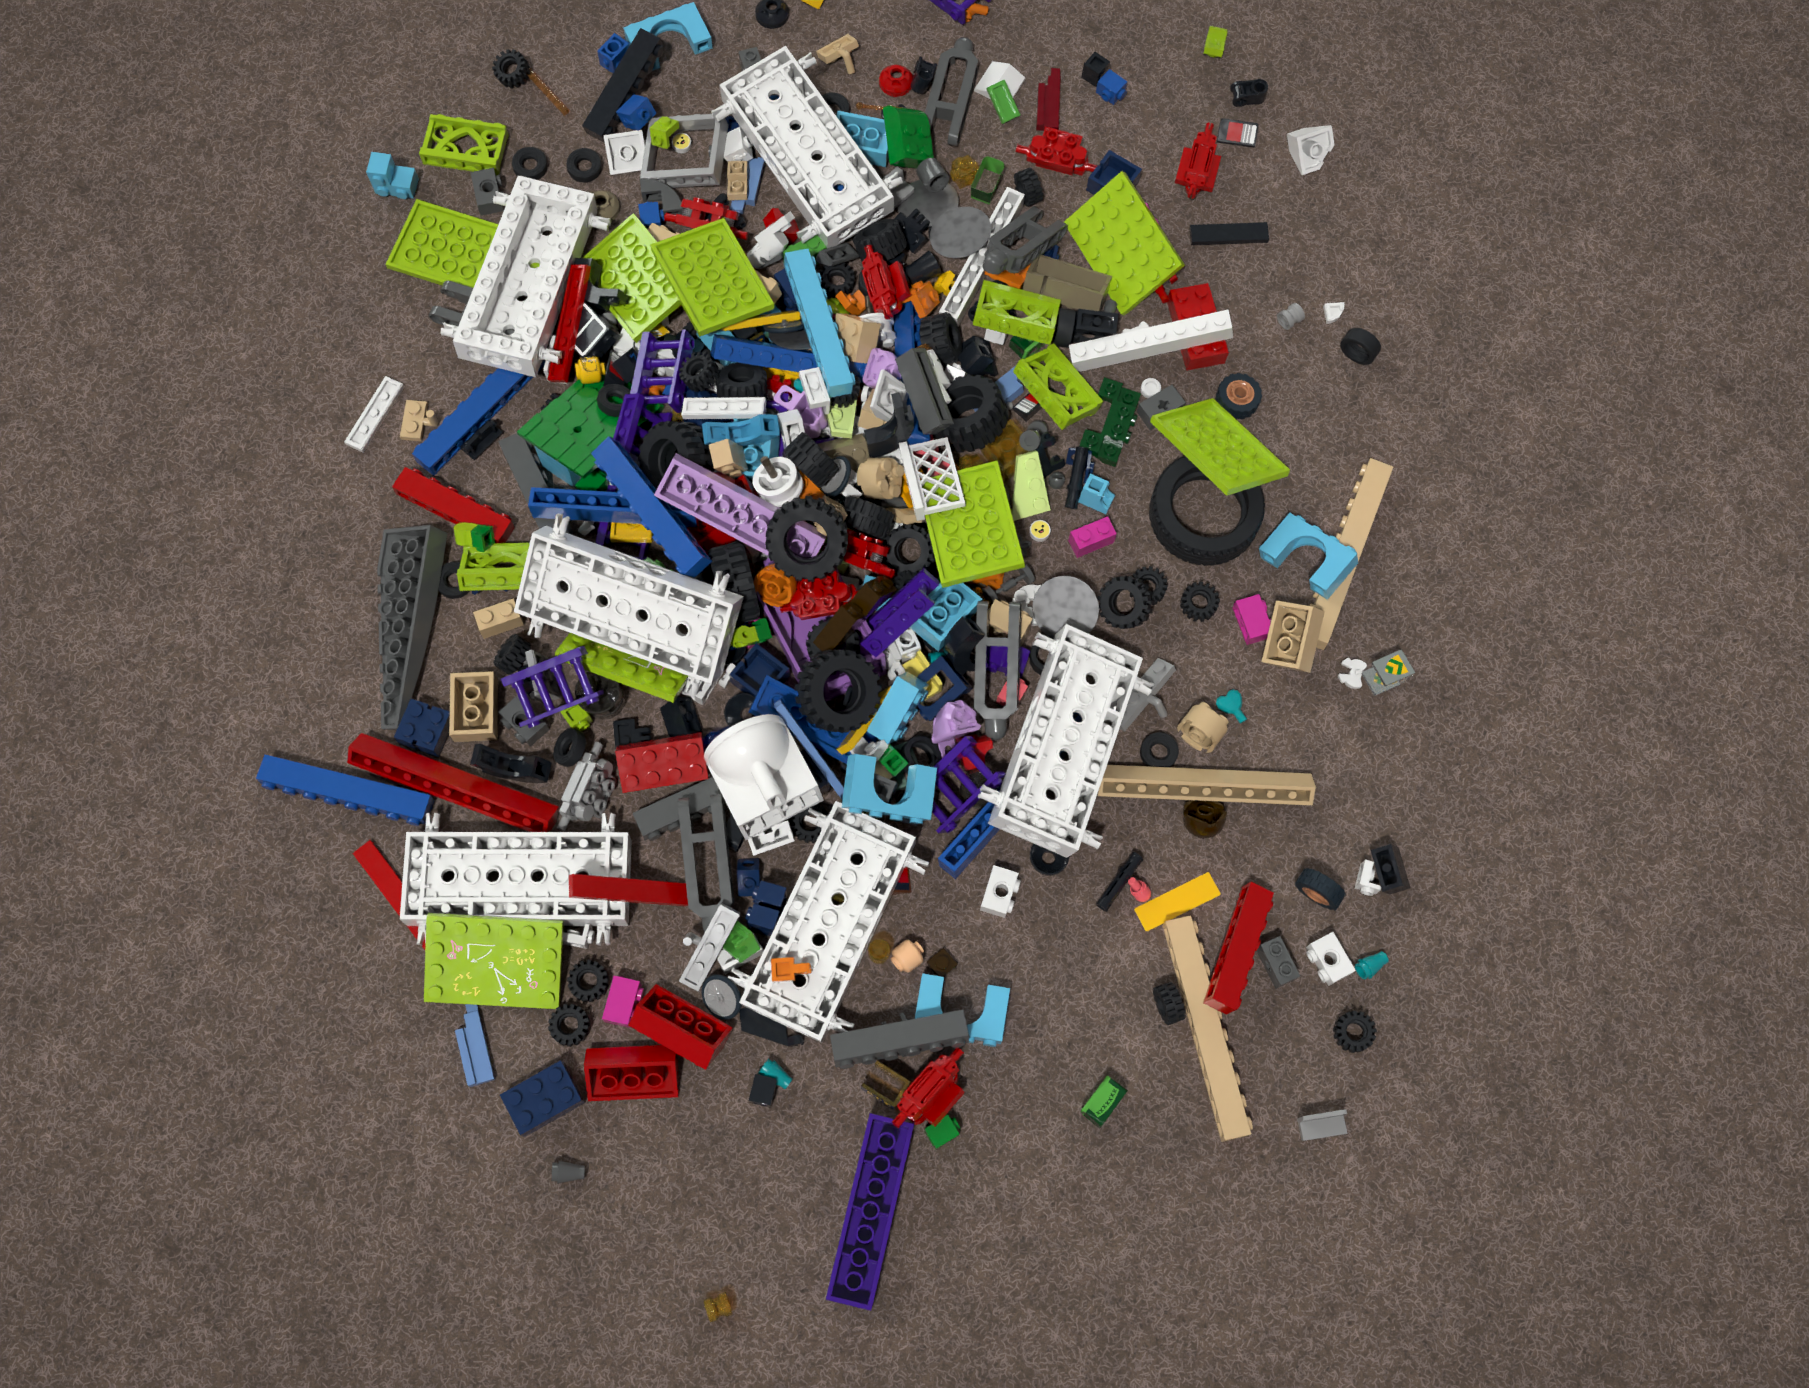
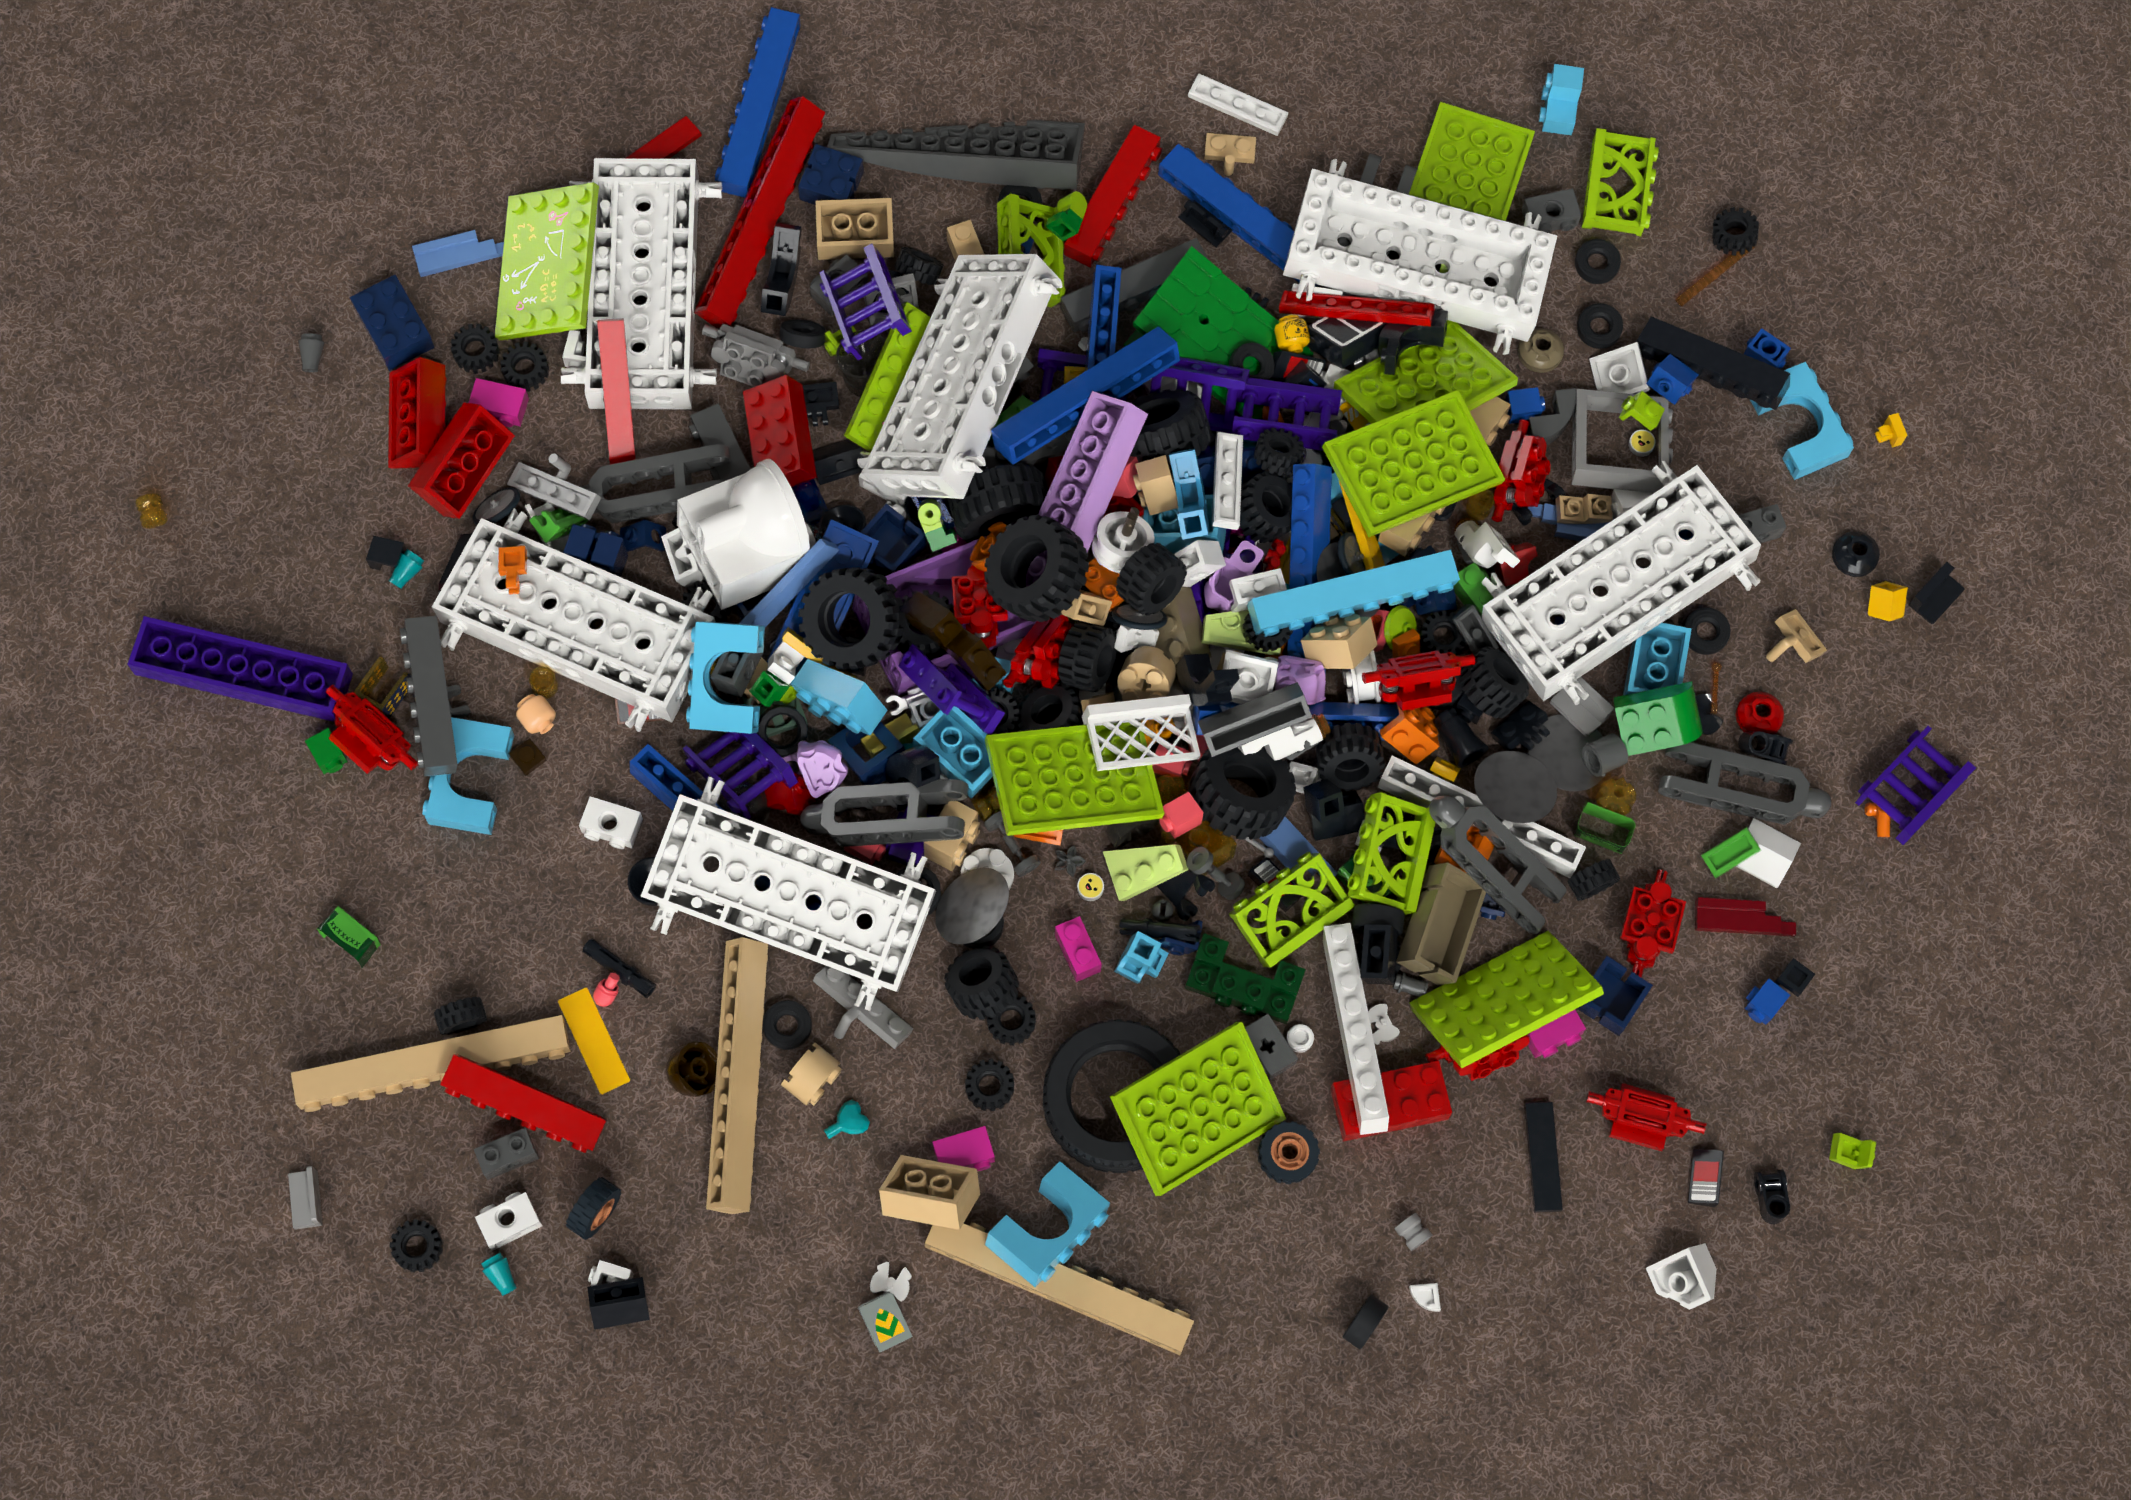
camera: 90 degrees right, 0 degrees up
(992, 450) = (1181, 815): none -> coral brick

